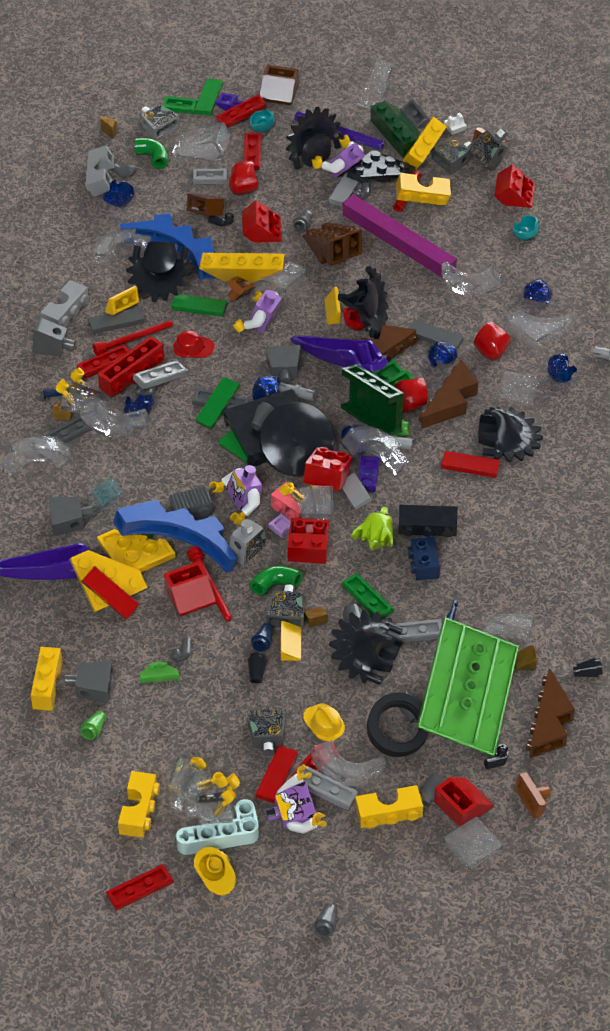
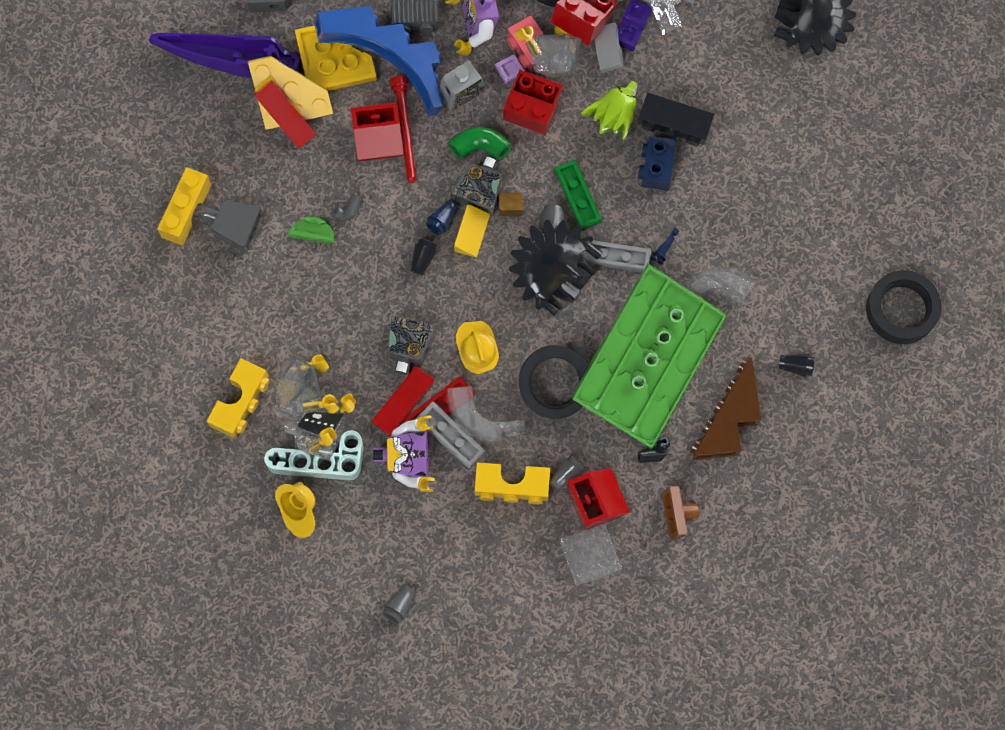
camera: 15 degrees right, 25 degrees up
(92, 727) = (218, 282): bright green cone -> none
(139, 887) = (211, 501): red tile -> none
(470, 464) = (755, 44): red tile -> none
(526, 659) = (731, 330): pearl gold slope -> none

